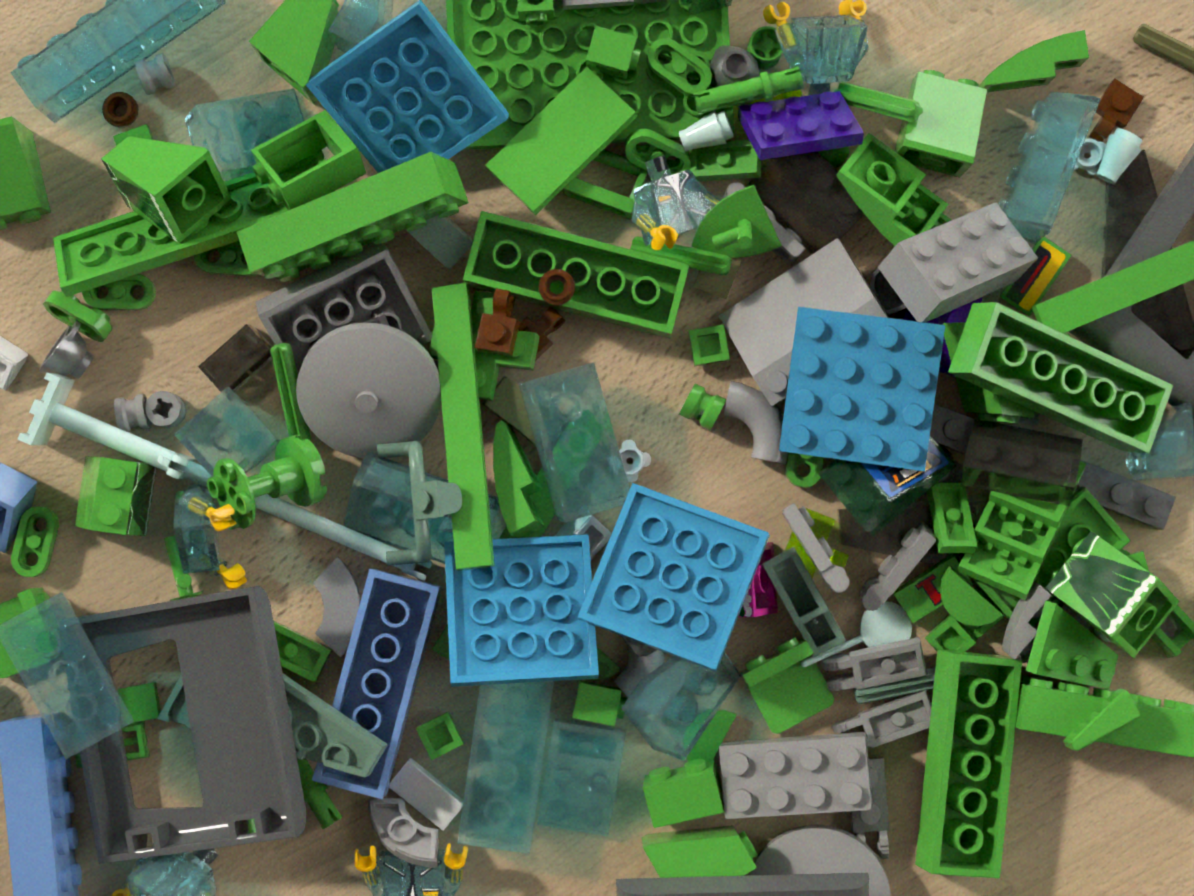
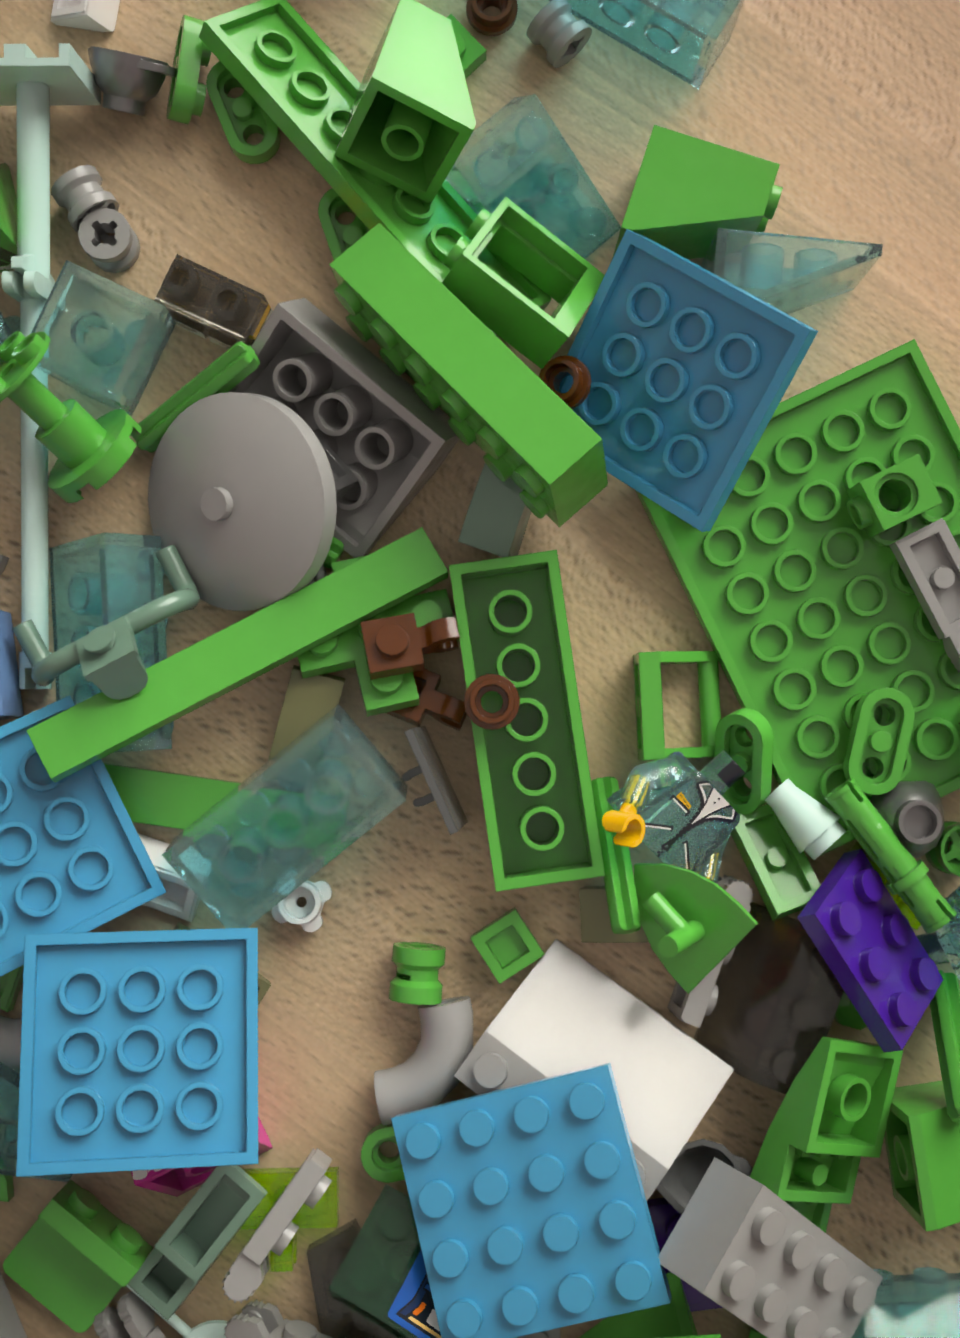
camera: 65 degrees right, 0 degrees up
(370, 156) = (564, 366): none -> reddish brown plate
(514, 483) = (199, 756): bright green slope -> none
(561, 140) = (704, 620): bright green tile -> none
(589, 342) = (436, 778): none -> dark grey piece
(612, 53) = (858, 639): bright green brick -> none

